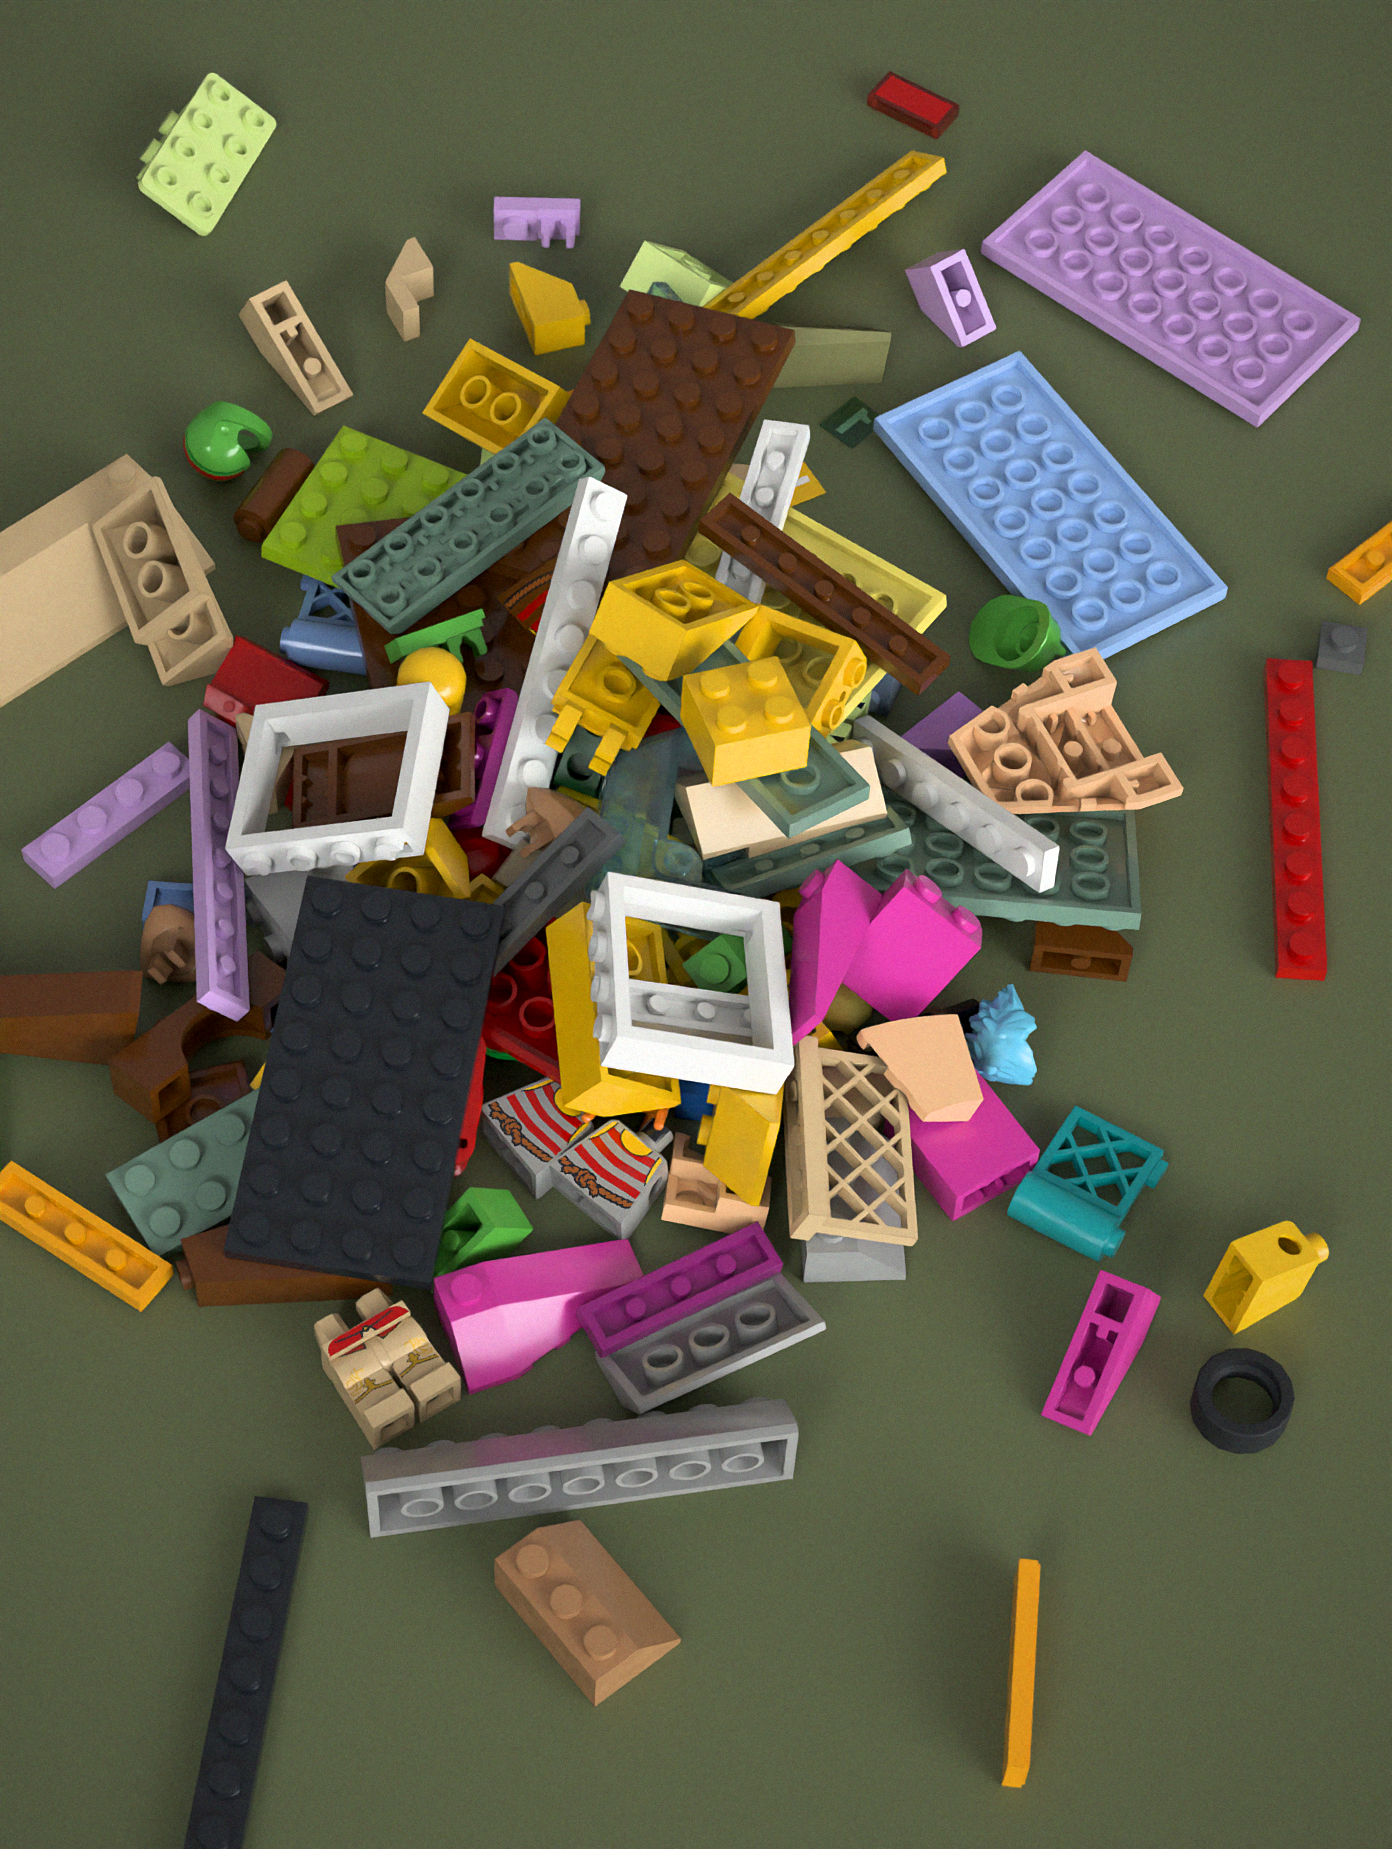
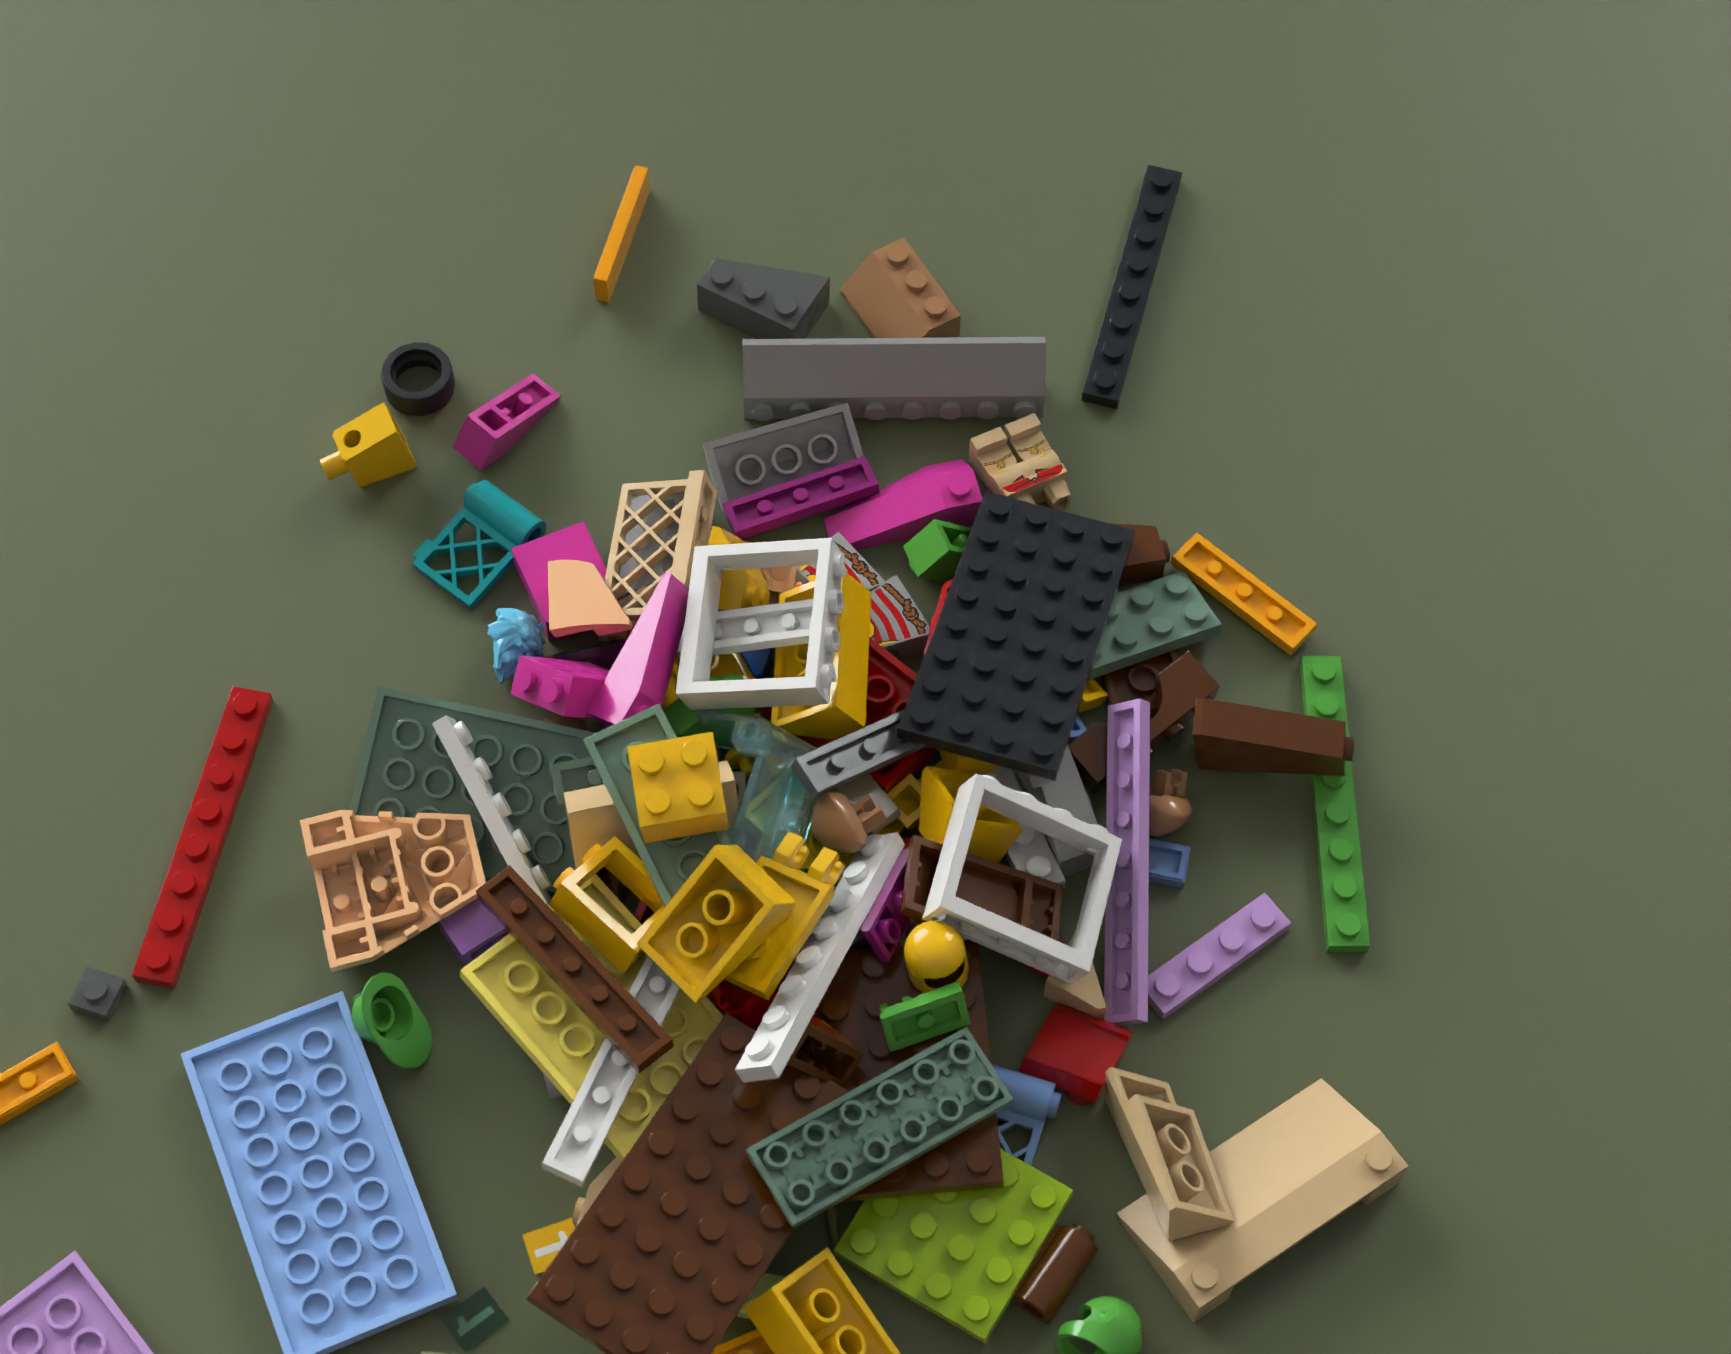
camera: 170 degrees left, 5 degrees up
(787, 1576) = (763, 299): none -> dark grey wedge

